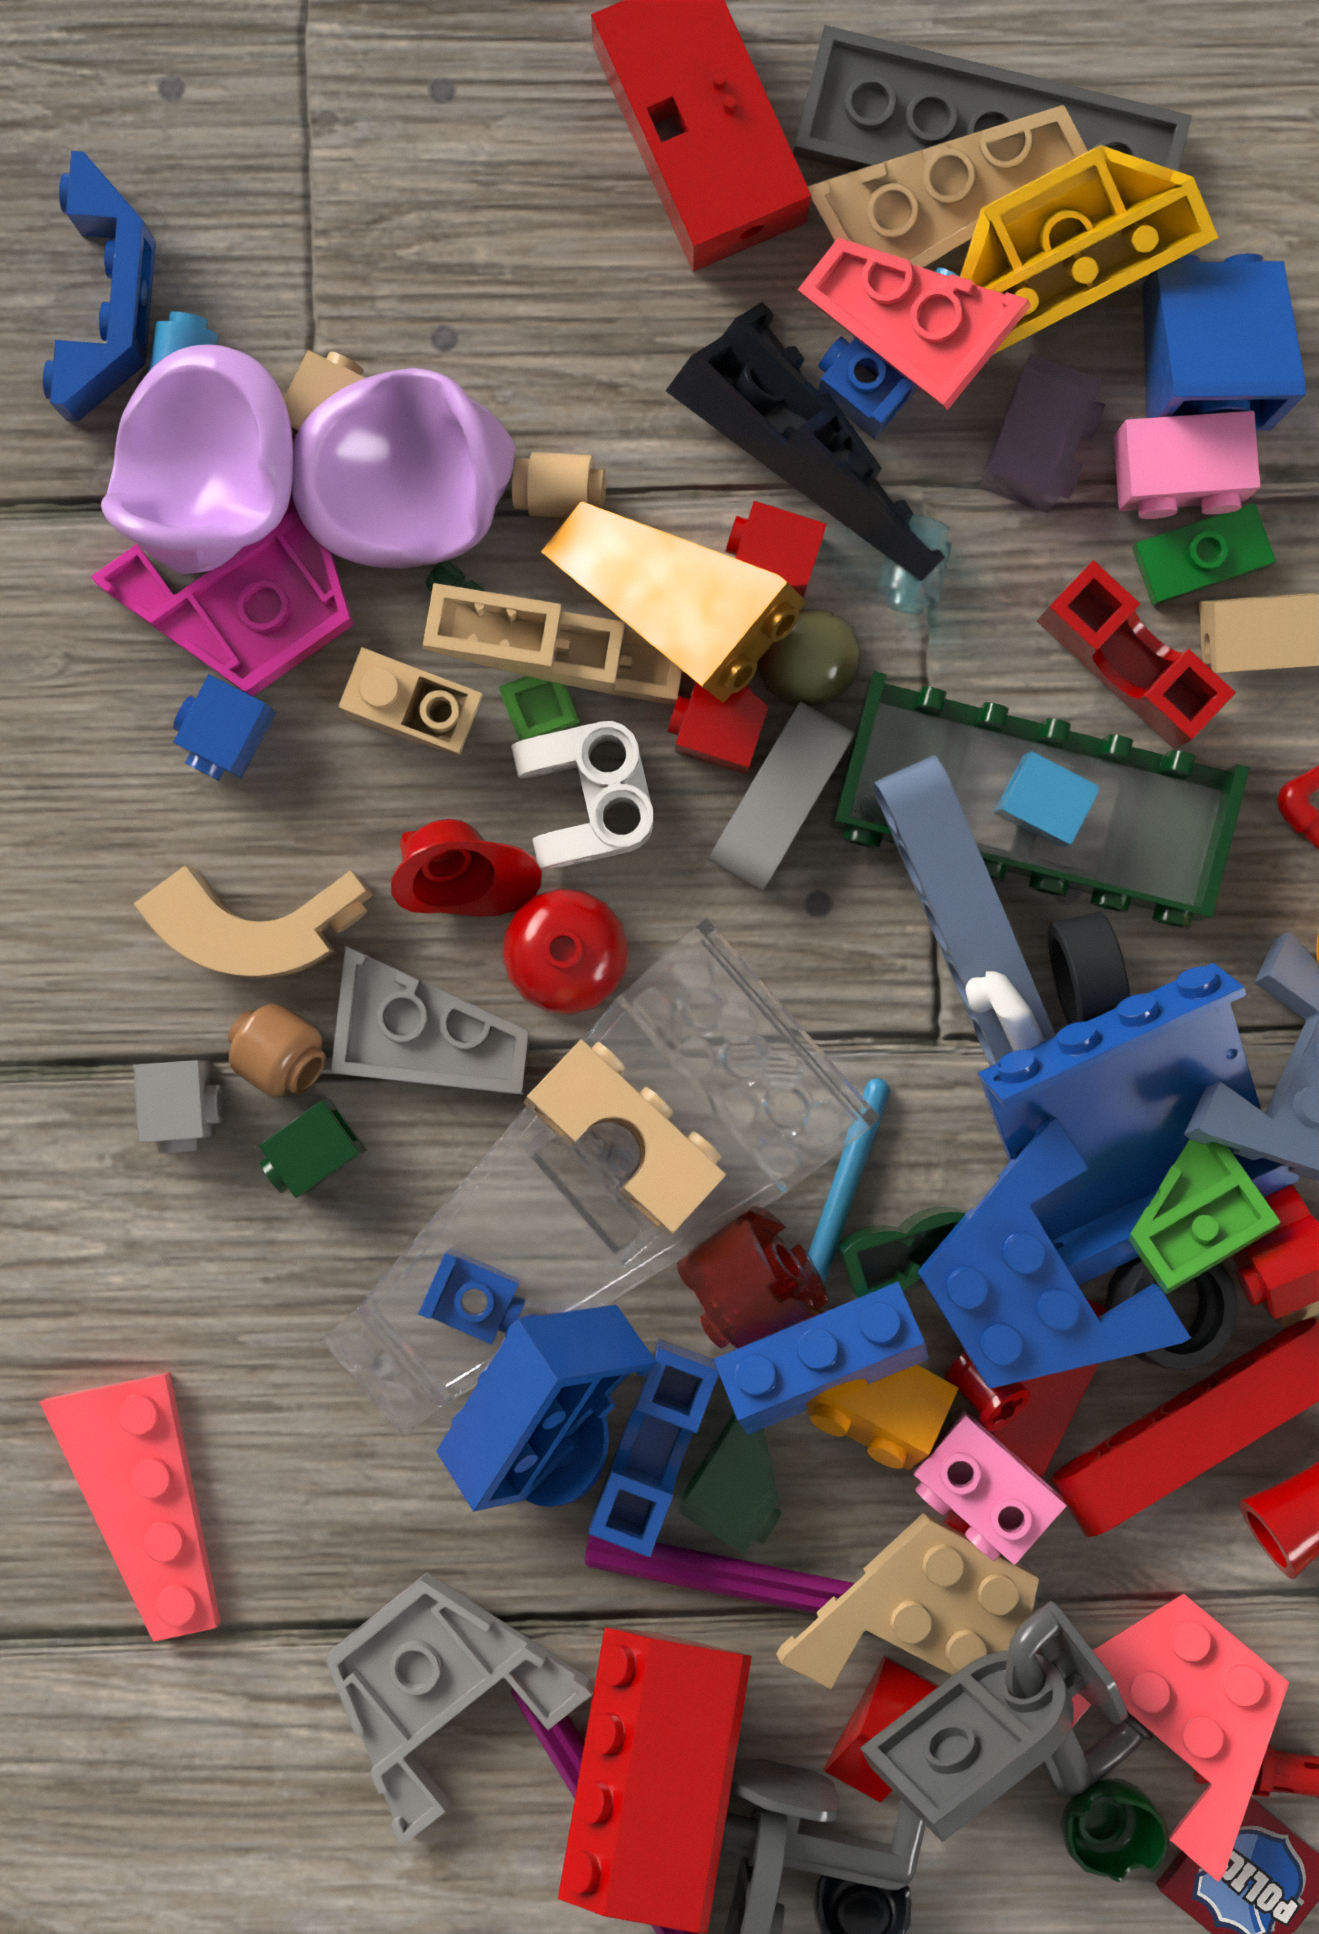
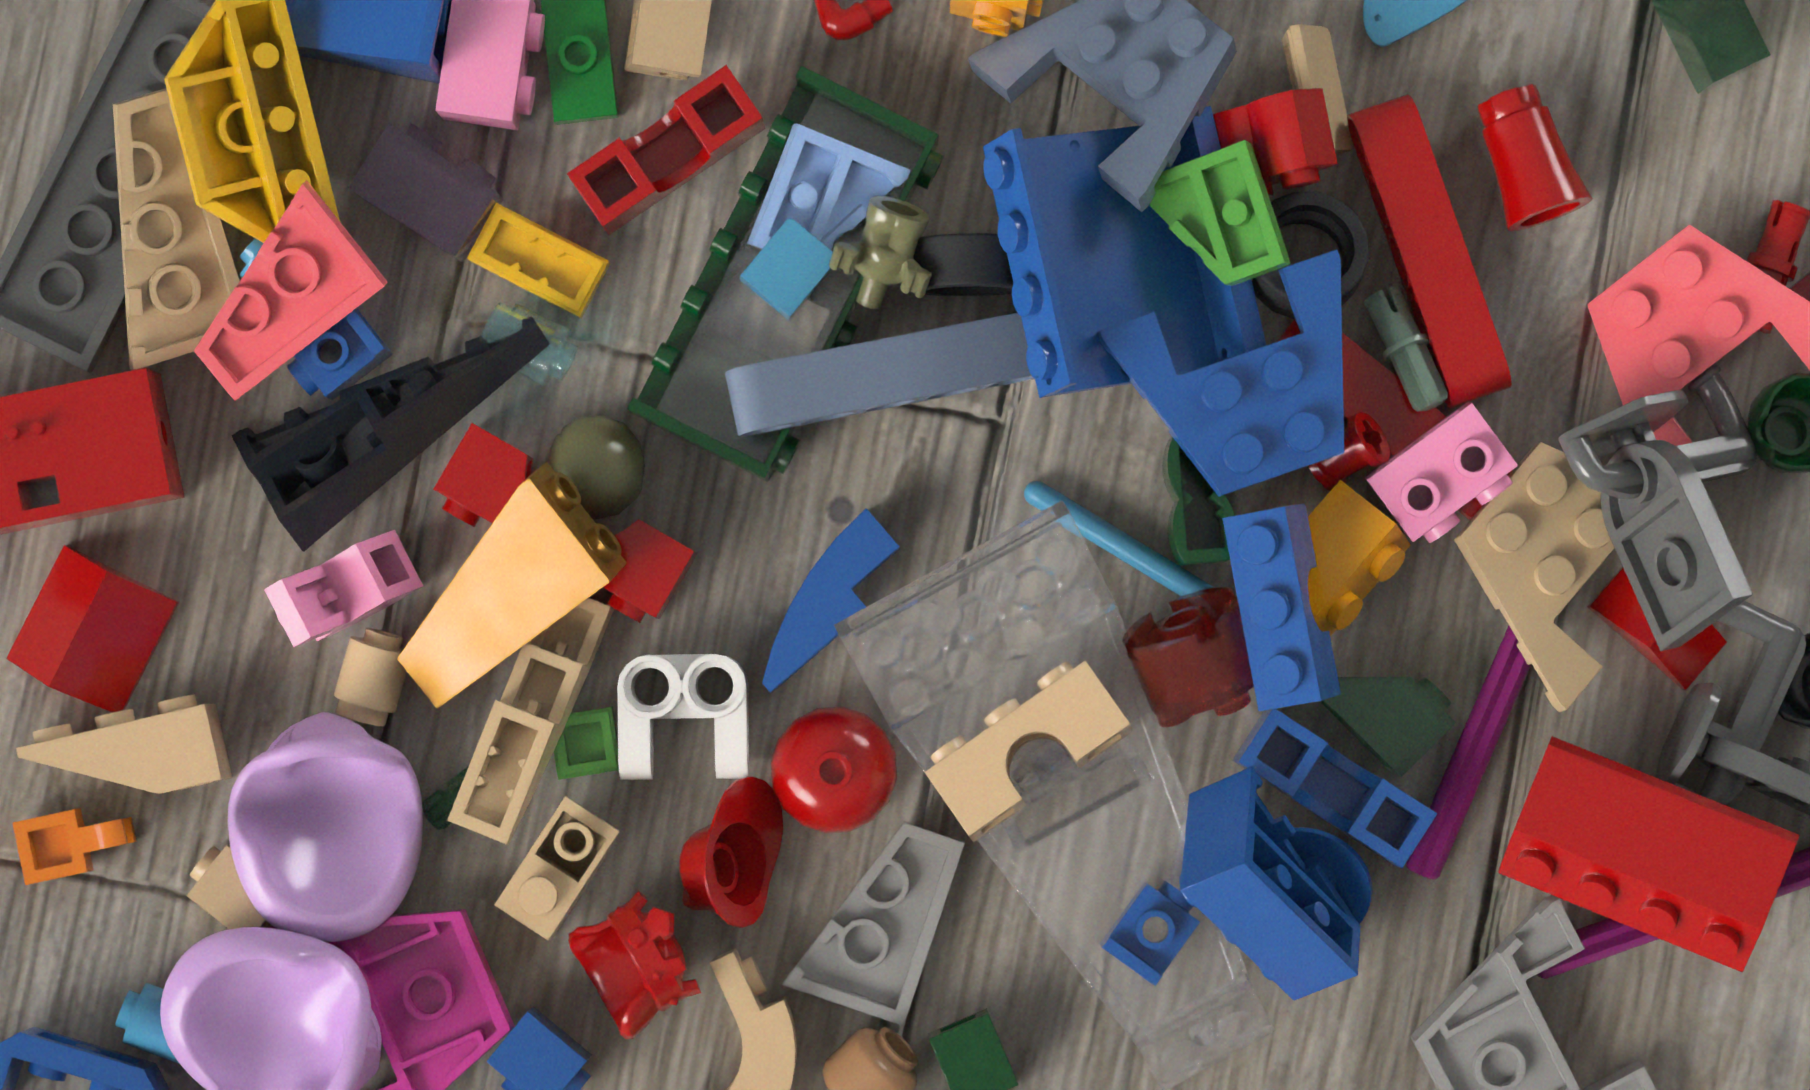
camera: 75 degrees left, 0 degrees up
(334, 227) = (62, 844): none -> orange plate
(334, 798) = (634, 963): none -> red hair
(438, 291) = (153, 754): none -> tan slope
(543, 211) = (91, 631): none -> red slope
(636, 437) = (344, 589): none -> bright pink brick
(732, 908) = (827, 596): none -> blue slope
(781, 796) = (727, 524): light grey beam -> none
(997, 557) = (538, 260): none -> yellow plate
(1014, 1014) = (983, 353): white arm -> none
(1087, 888) = (885, 251): none -> olive piece
(1100, 1424) = (1406, 349): none -> sand green axle
(1135, 817) = (823, 187): none -> light blue wing

